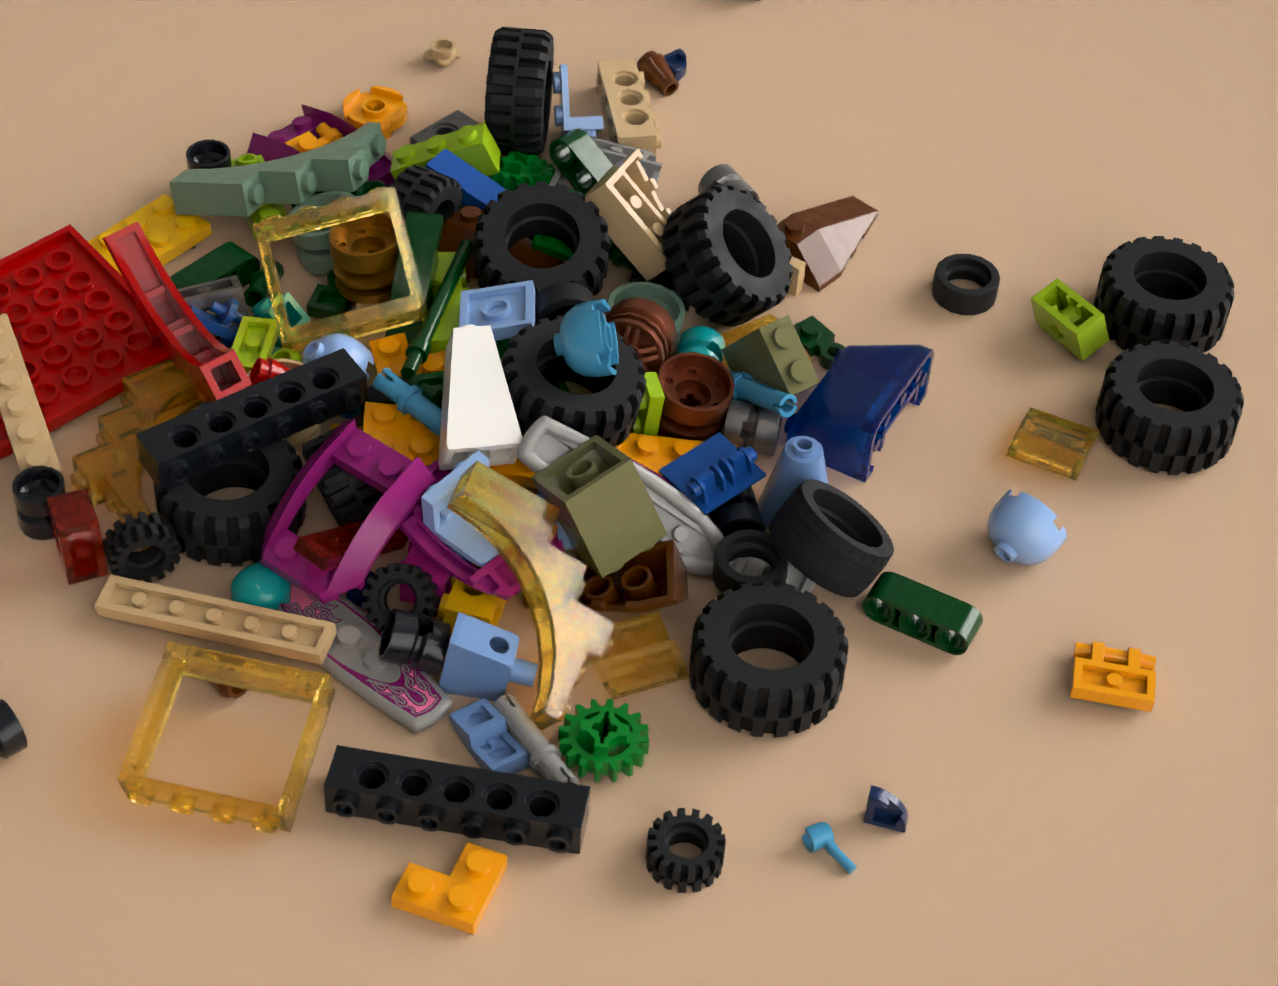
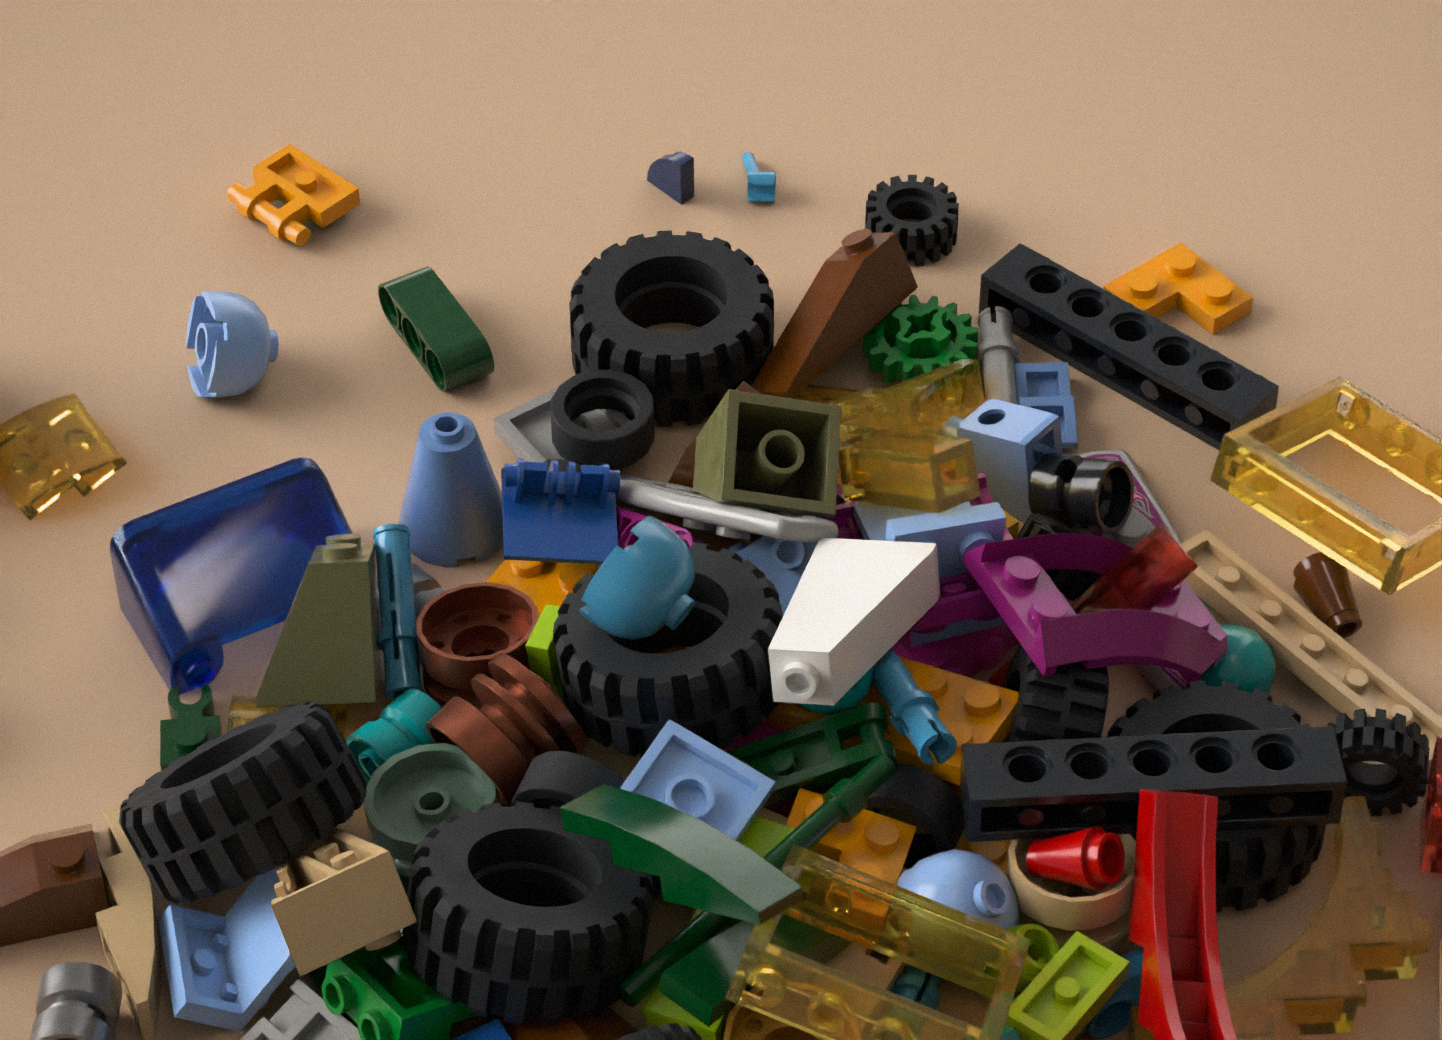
camera: 145 degrees left, 0 degrees up
(468, 240) = (691, 857): none -> dark green slope
(666, 713) = (840, 307): none -> reddish brown wedge
(831, 538) = (497, 372): black tyre -> none

